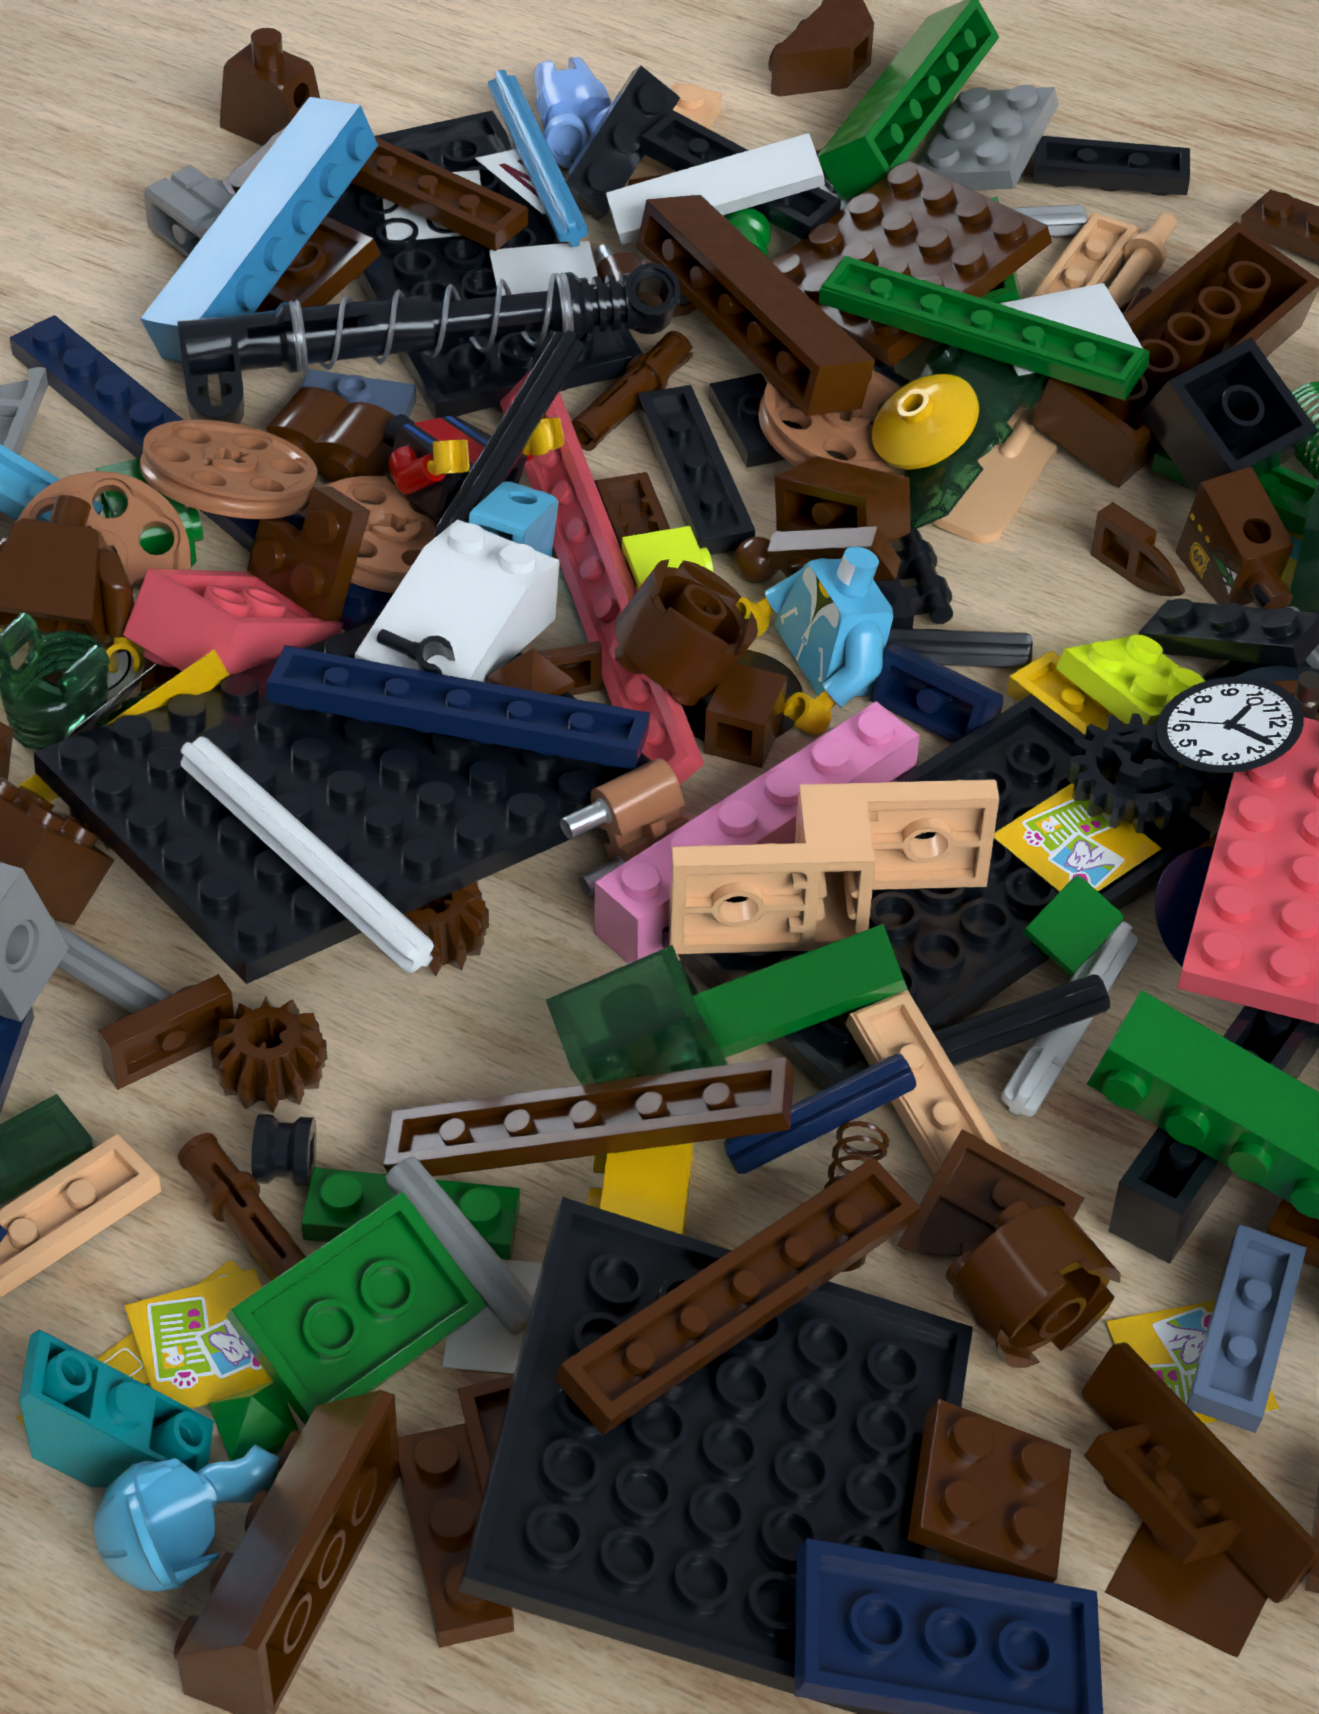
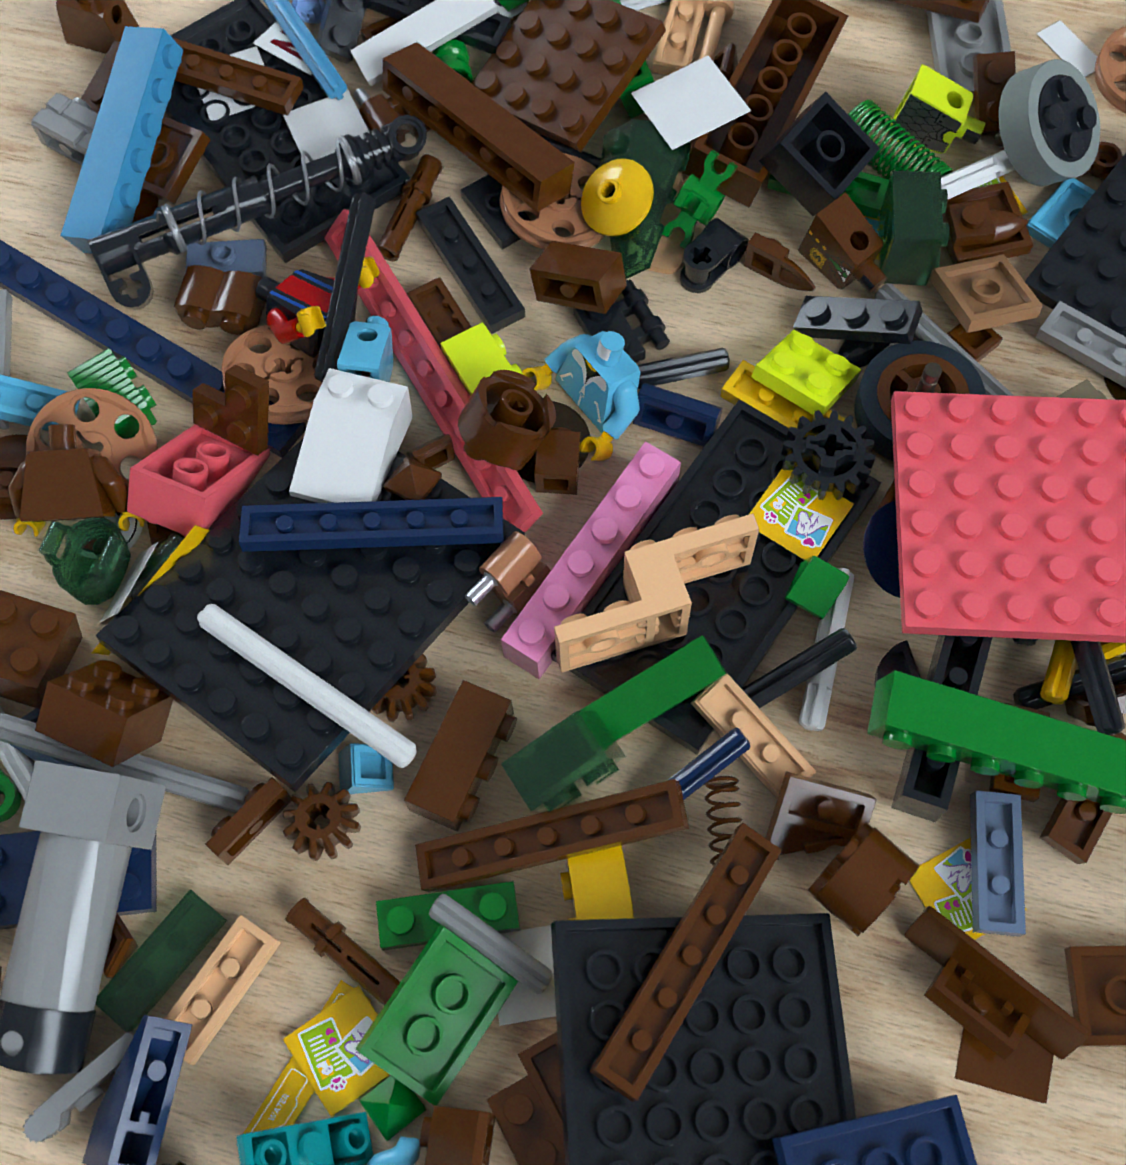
camera: 10 degrees left, 20 degrees up
(228, 469) = (158, 354): nougat wedge -> none
(284, 1149) = (353, 895): black wheel -> none
(354, 1014) = (364, 770): none -> medium azure slope
(417, 651) = (330, 484): black hand -> none
(488, 1021) = (461, 756): none -> reddish brown brick
(760, 558) = (568, 324): reddish brown plate -> none
(985, 327) = (640, 116): green tile -> none
(989, 1494) = (872, 1039): reddish brown plate -> none
(1042, 447) = (699, 199): none -> green pin
(1043, 526) = (711, 255): none -> black piece
(1230, 724) = (886, 414): sticker -> none

